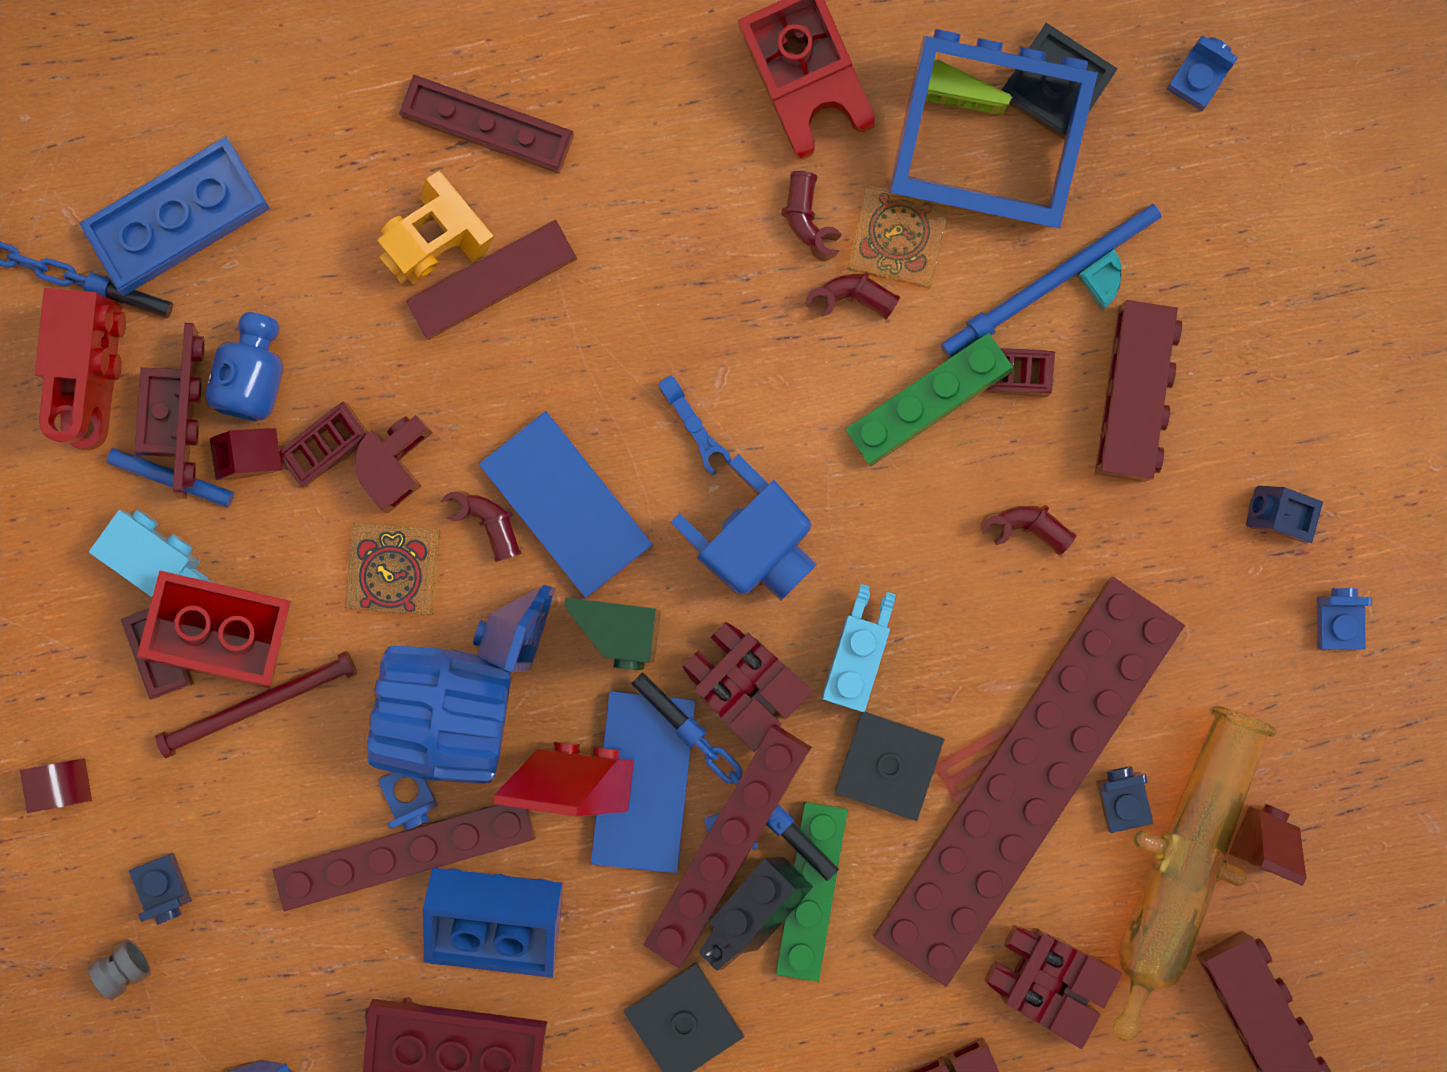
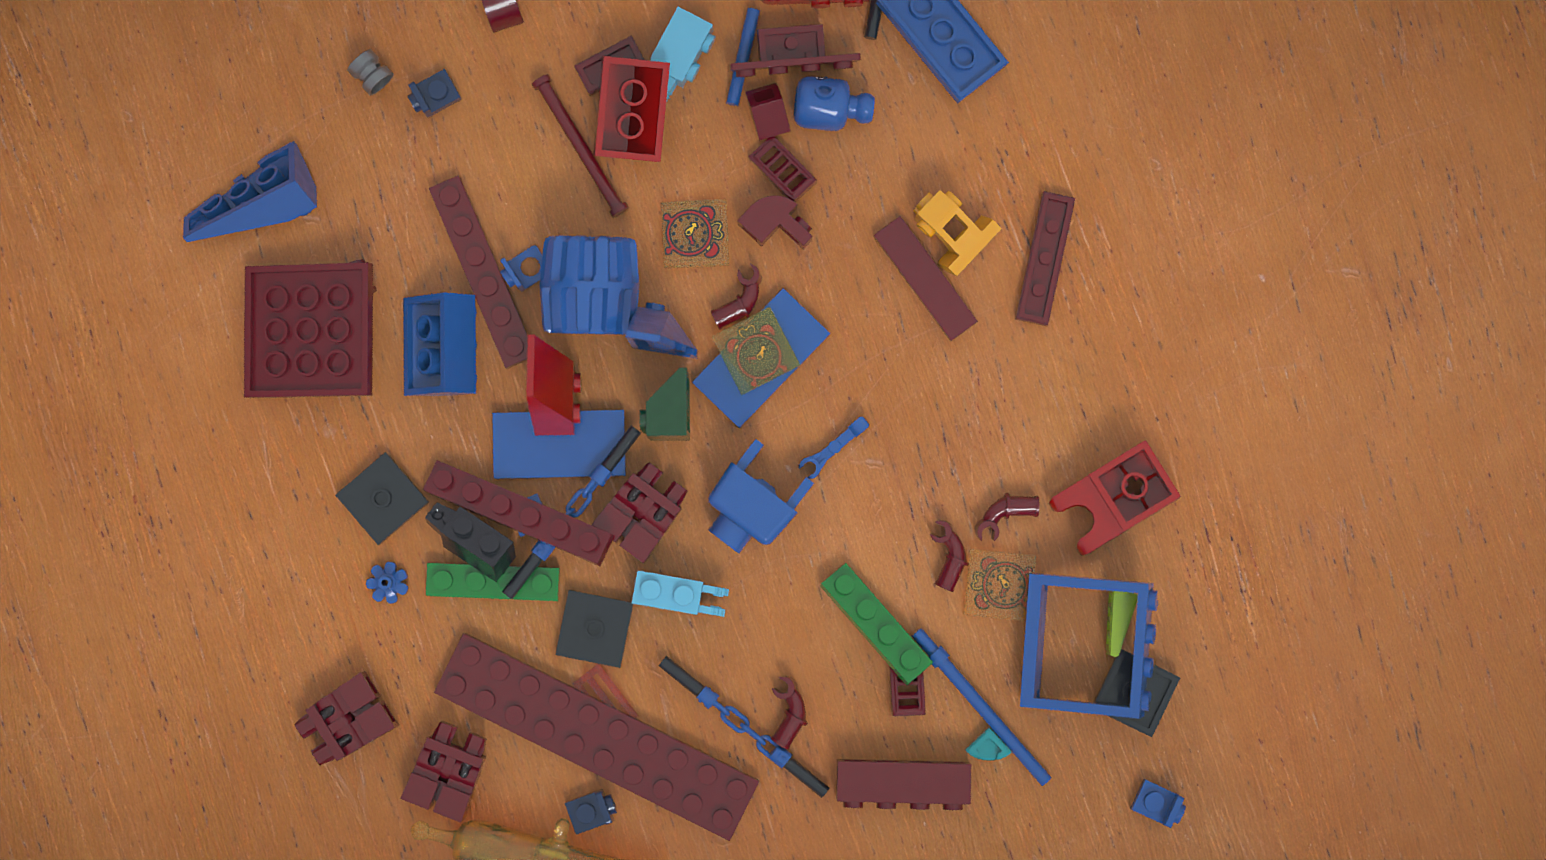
camera: 75 degrees right, 0 degrees up
(555, 509) = (755, 351): none -> clear yellow tile
(791, 1021) = (394, 582): none -> blue plant
(1082, 547) = (779, 755): none -> piece

